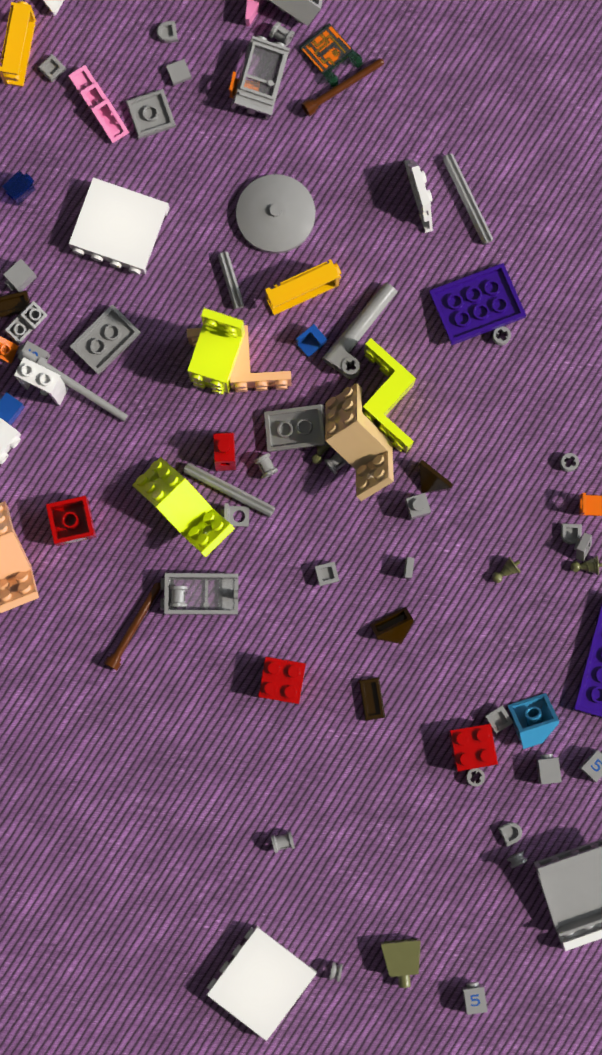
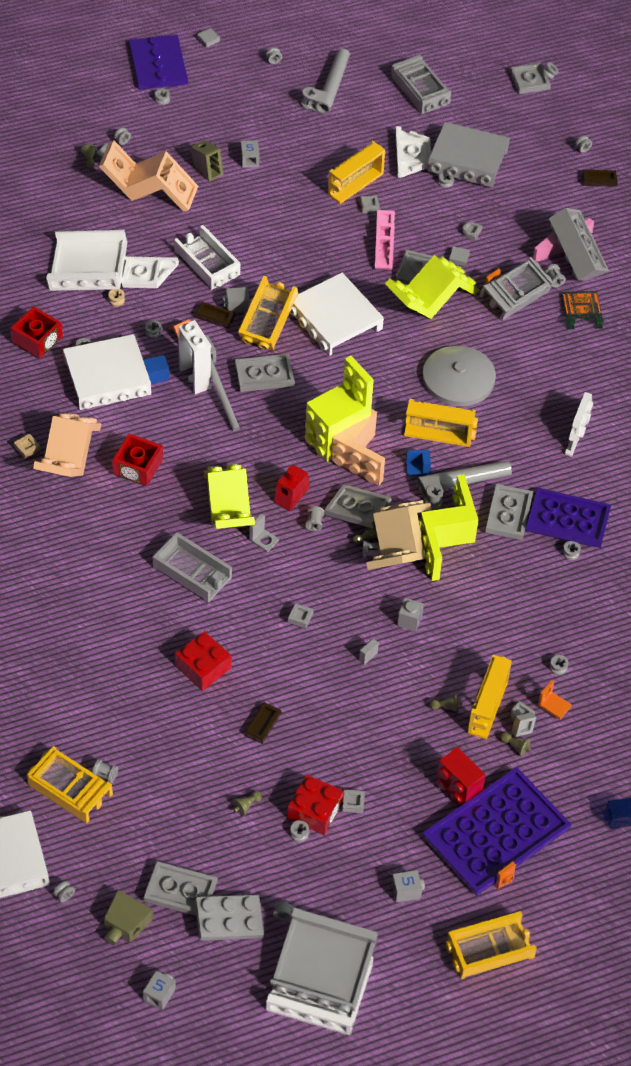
camera: 35 degrees right, 30 degrees down
(19, 187) = (284, 251): clear blue brick -> none
(25, 322) = (219, 328): light grey slope -> none
(63, 276) = (267, 314): none -> door
(114, 659) = (87, 568): reddish brown piece -> none
(177, 596) = (174, 554): light grey bush -> none
(188, 137) = (432, 286): none -> neon yellow bracket
(229, 489) = (273, 518): light grey axle -> none
(231, 281) = (389, 394): light grey axle -> none
(263, 875) = (68, 784): none -> yellow door
(311, 106) = (541, 328): reddish brown piece -> none
(393, 627) = (321, 685): dark brown slope -> none
(414, 786) = (243, 804): none -> olive piece
(423, 335) = (509, 512): none -> light grey plate
(423, 900) = (178, 887): none -> light grey plate
(432, 480) = (437, 607): dark brown slope -> none
(467, 198) = (616, 451): light grey axle -> none
(480, 898) = (229, 917): none -> light grey plate
(510, 833) = (294, 891): light grey tile -> none
(533, 720) = (379, 819): dark azure slope -> none
(541, 542) = (489, 697): none -> yellow door
(548, 769) = (364, 863): light grey brick -> none
(571, 639) = (460, 776): none -> red brick

